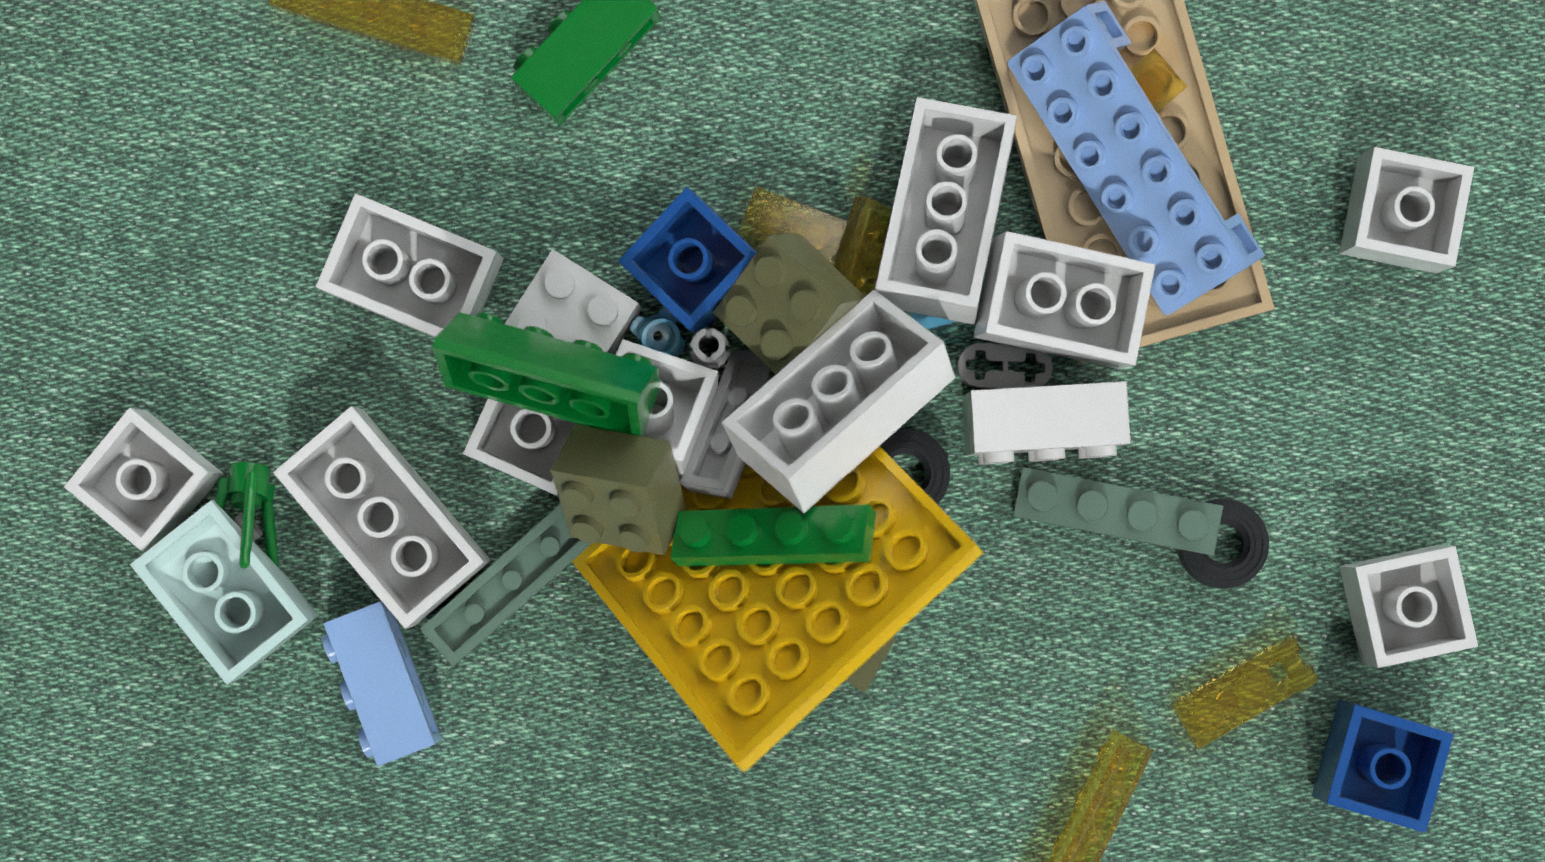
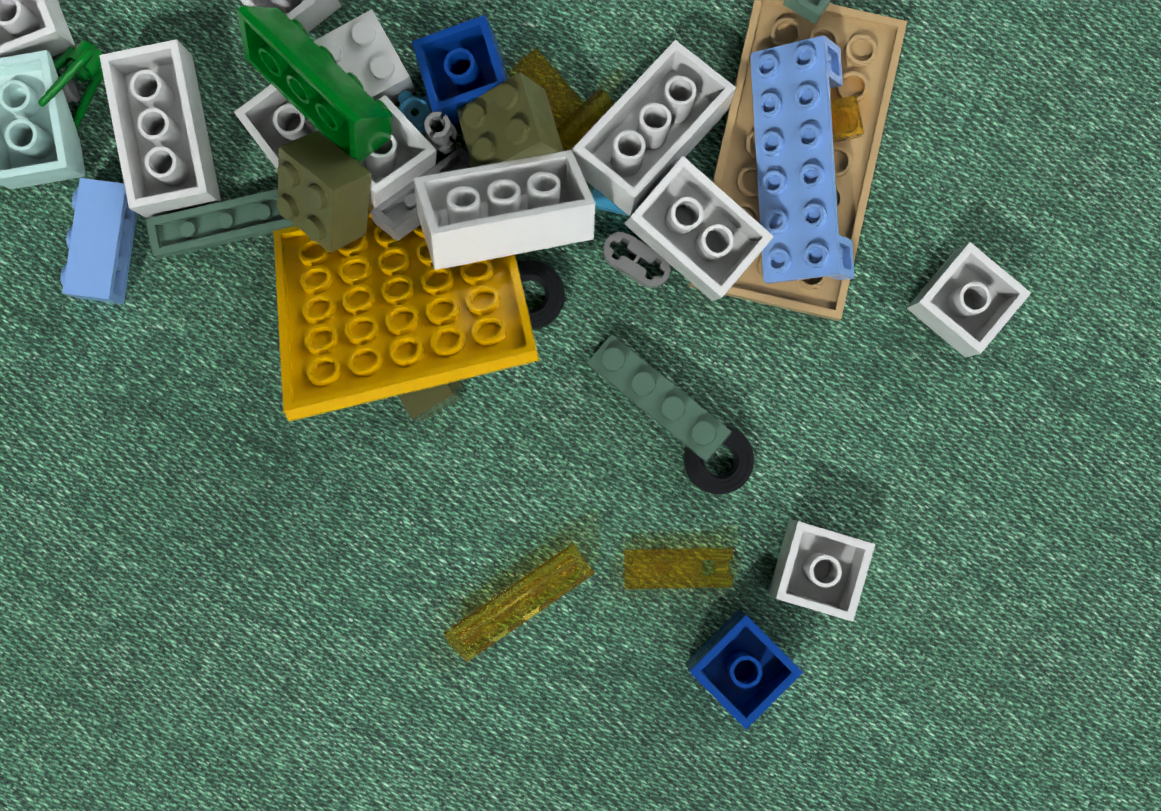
camera: 30 degrees right, 0 degrees up
(774, 535) = (409, 277): green plate -> none
(1046, 422) = (641, 307): white brick -> none

